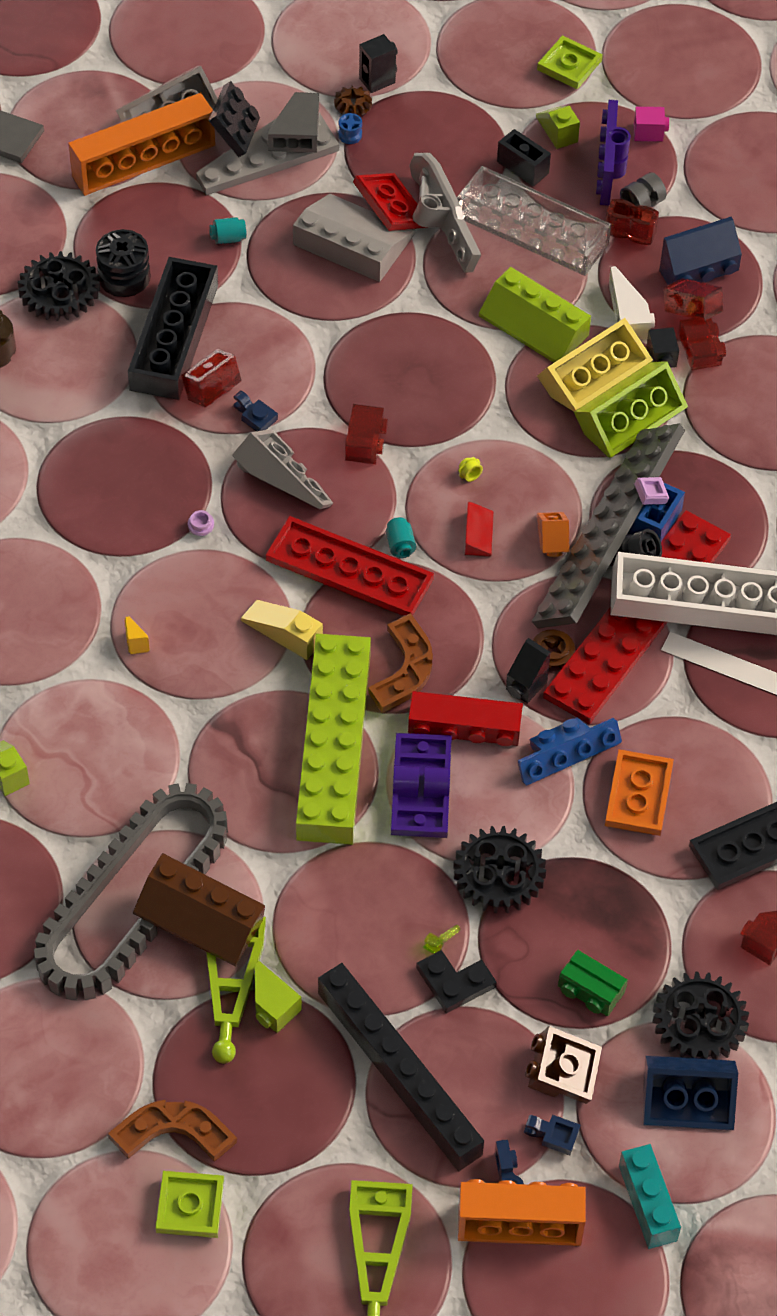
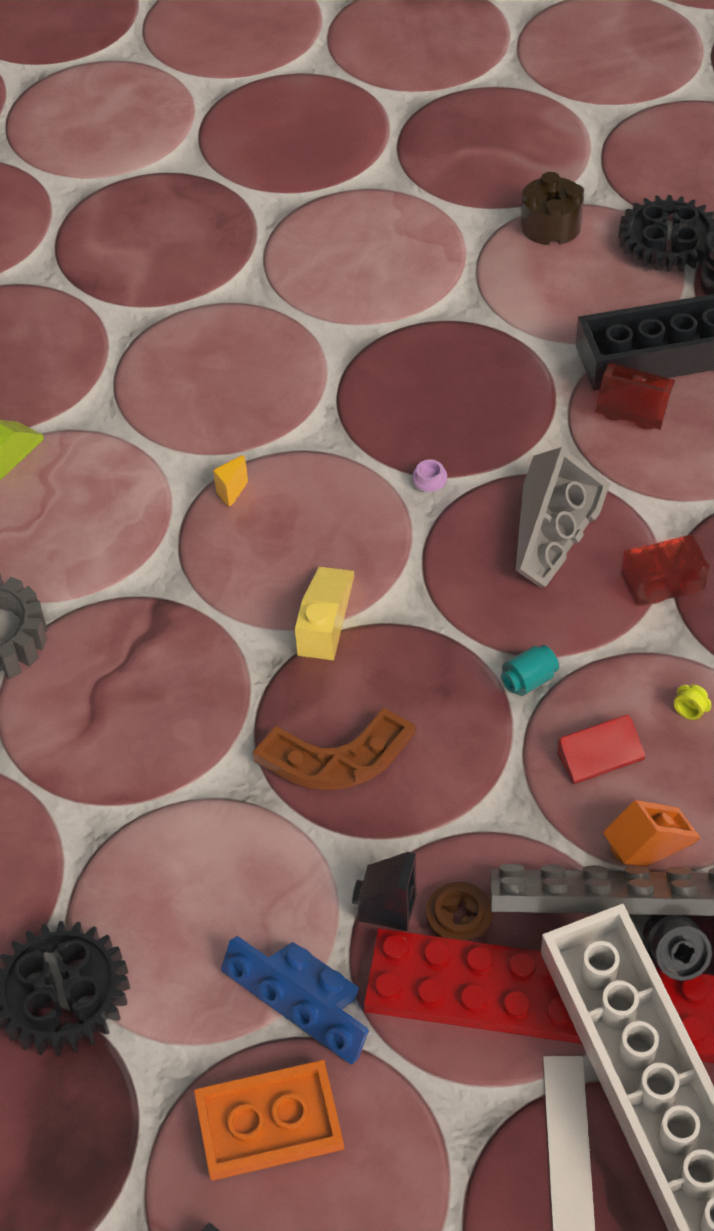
camera: 70 degrees right, 5 degrees down
(255, 415) = (624, 464): dark blue plate -> none
(333, 739) = (179, 720): lime brick -> none
(349, 567) = (453, 641): red plate -> none
(421, 785) = (156, 843): dark purple plate -> none
(465, 718) = (284, 853): red brick -> none

